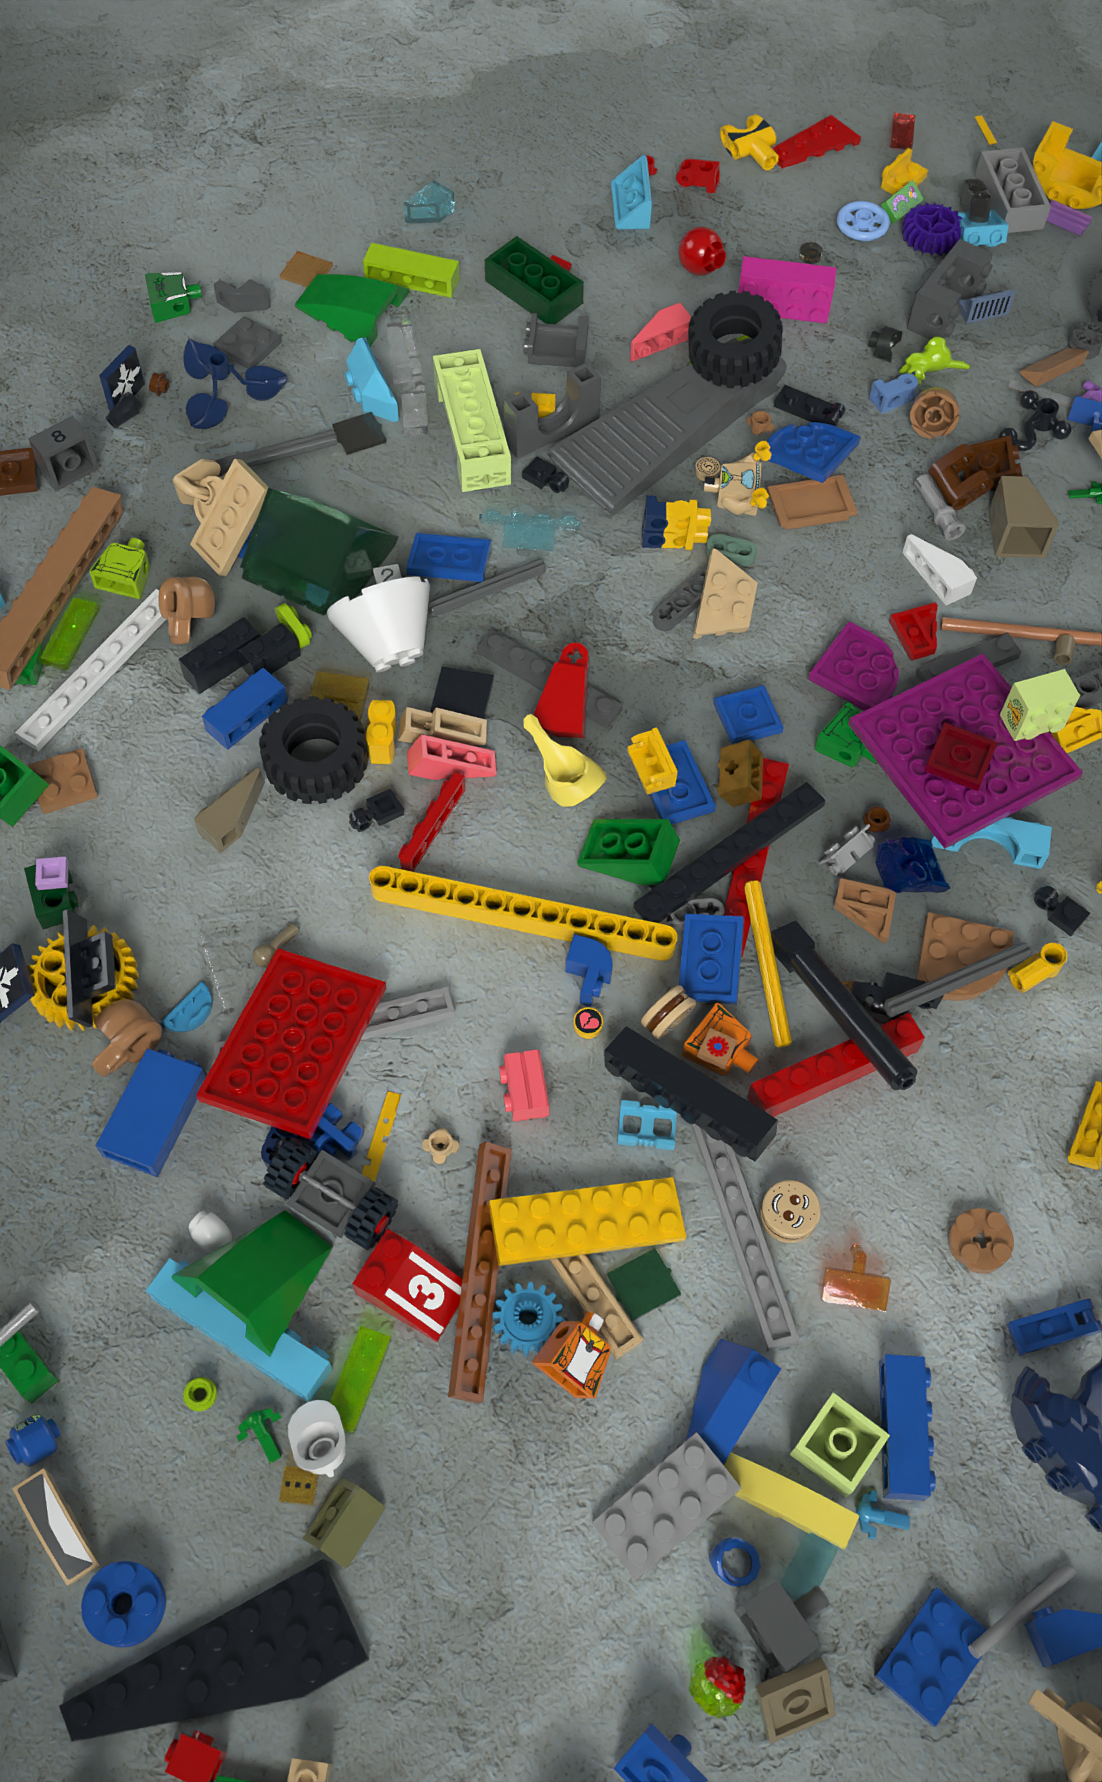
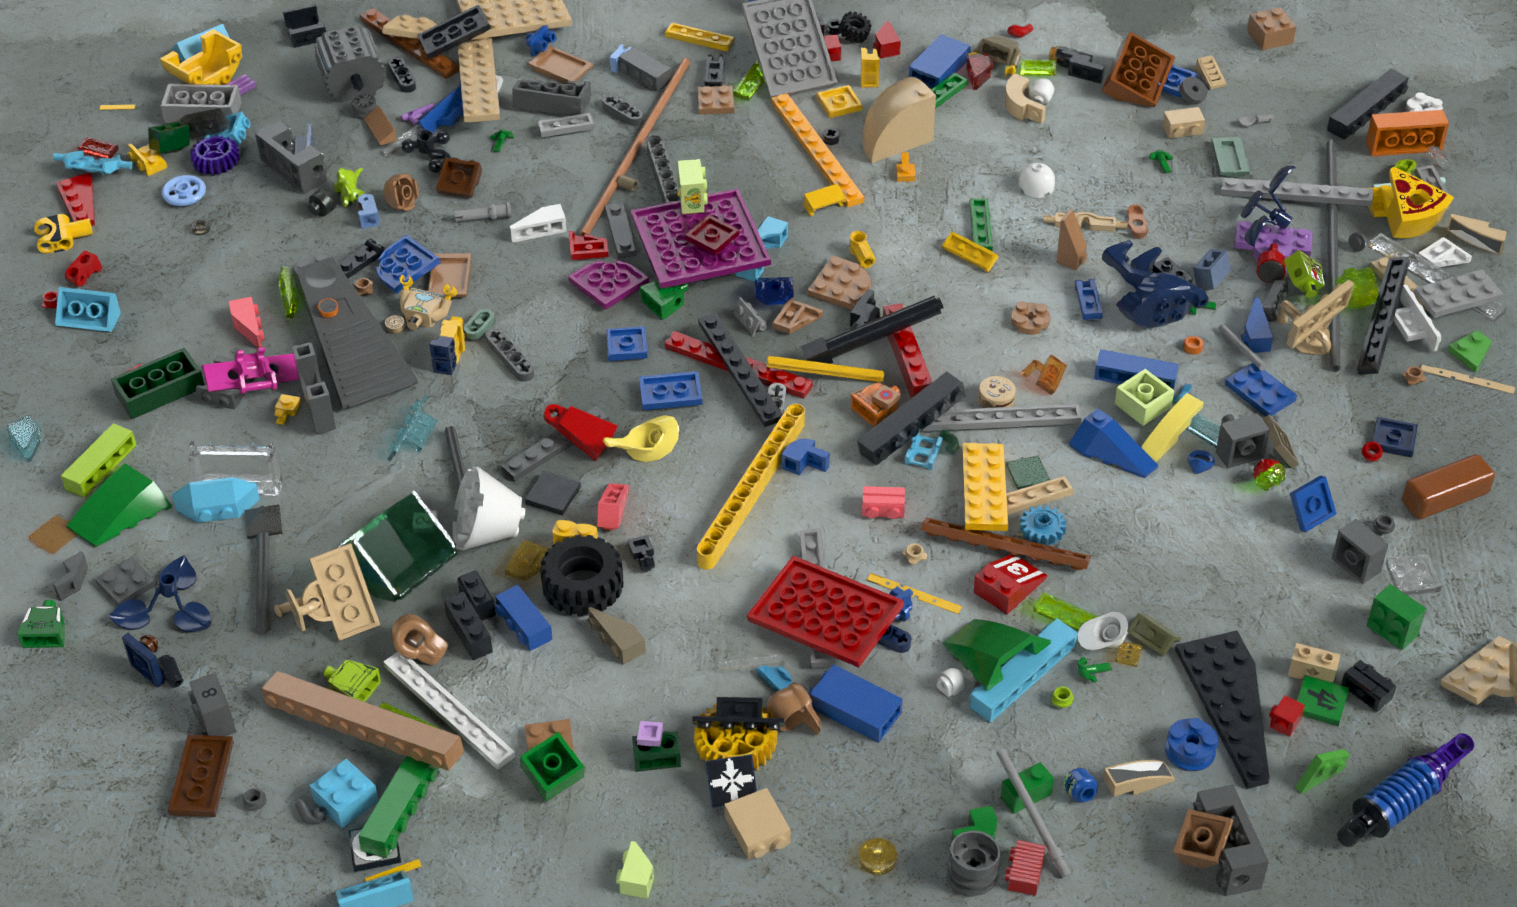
camera: 75 degrees left, 15 degrees down
(263, 953) = (744, 629): dark tan bar -> none
(289, 617) = (447, 582): lime plate -> none
(330, 1193) = (942, 606): plate -> none
(436, 816) = (664, 521): red plate -> none
(442, 725) = (583, 503): tan slope -> none
(449, 557) = (425, 476): blue plate -> none
(473, 420) = (298, 432): yellowish green plate -> none
(541, 473) = (359, 417): black plate -> none
(569, 342) = (250, 366): none -> dark pink piece
(575, 1356) = (1072, 501): torso -> none
(588, 1023) = (842, 467): tile -> none
(630, 849) = (718, 420): green slope -> none
(652, 761) = (656, 390): yellow hinge -> none
(666, 1506) = (1166, 481): light grey plate -> none
(668, 1012) = (851, 419): tan head -> none
(674, 1163) = (952, 440): none -> clear green arm
(681, 386) = (328, 307): none -> tile
(701, 251) = (178, 279): red brick -> none
(711, 957) = (816, 393): blue plate -> none
(725, 598) = (523, 334): tan wing -> none
(735, 315) = (310, 242): black tyre -> none
(740, 773) = (668, 346): pearl gold brick -> none
(793, 288) = (245, 241): dark pink brick -> none
(870, 130) = (77, 161): none -> medium azure plate
(879, 814) = (730, 298): reddish brown plate -> none
(902, 201) = (175, 164): bright green tile -> none
(937, 177) = (168, 137): none -> dark green brick
(945, 476) = (466, 201): reddish brown connector -> none
(956, 979) = (865, 280): dark grey axle -> none
(1008, 1521) = (1193, 345): none -> orange tile
(1020, 520) = (517, 172): dark tan slope -> none
(1065, 915) = (825, 231): black plate -> none

